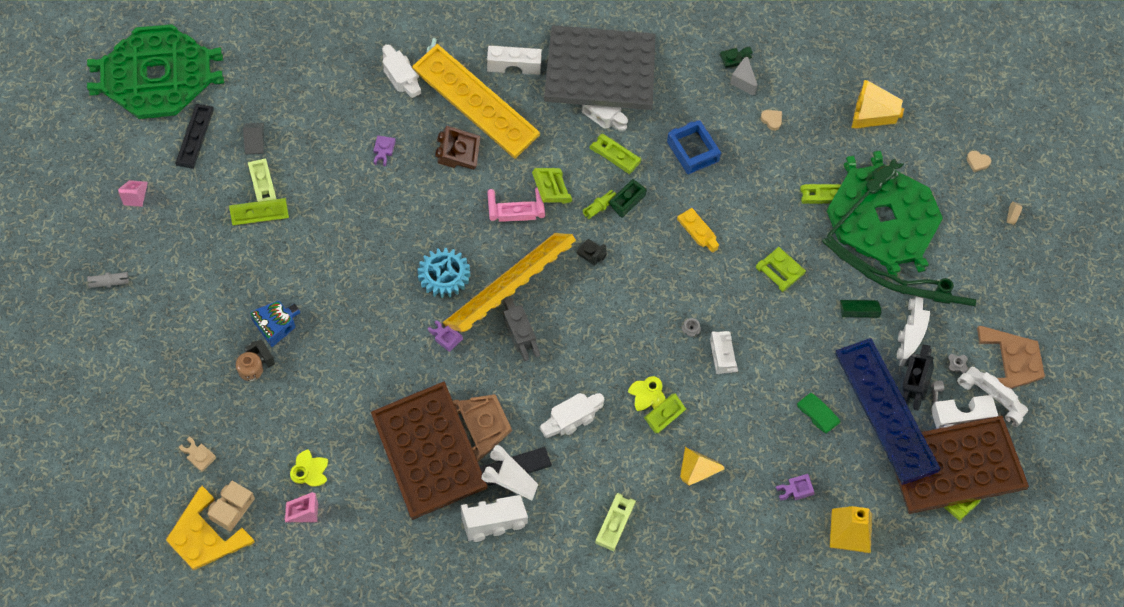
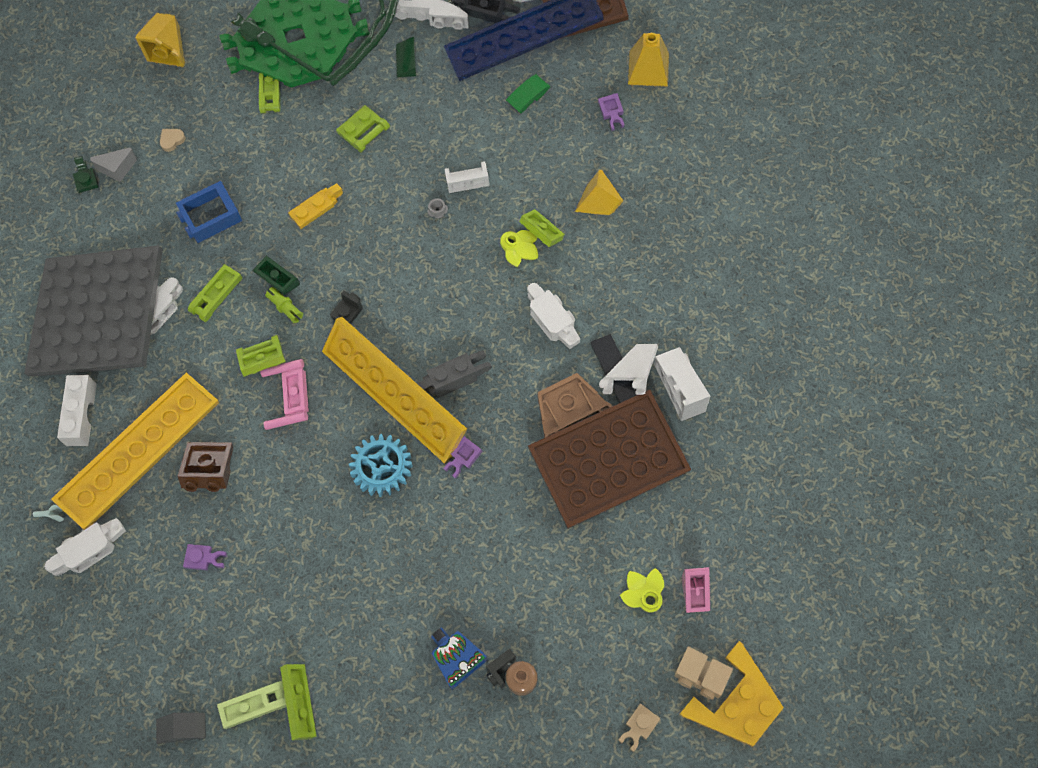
camera: 85 degrees left, 5 degrees up
(615, 522) = (667, 269): yellowish green plate -> none

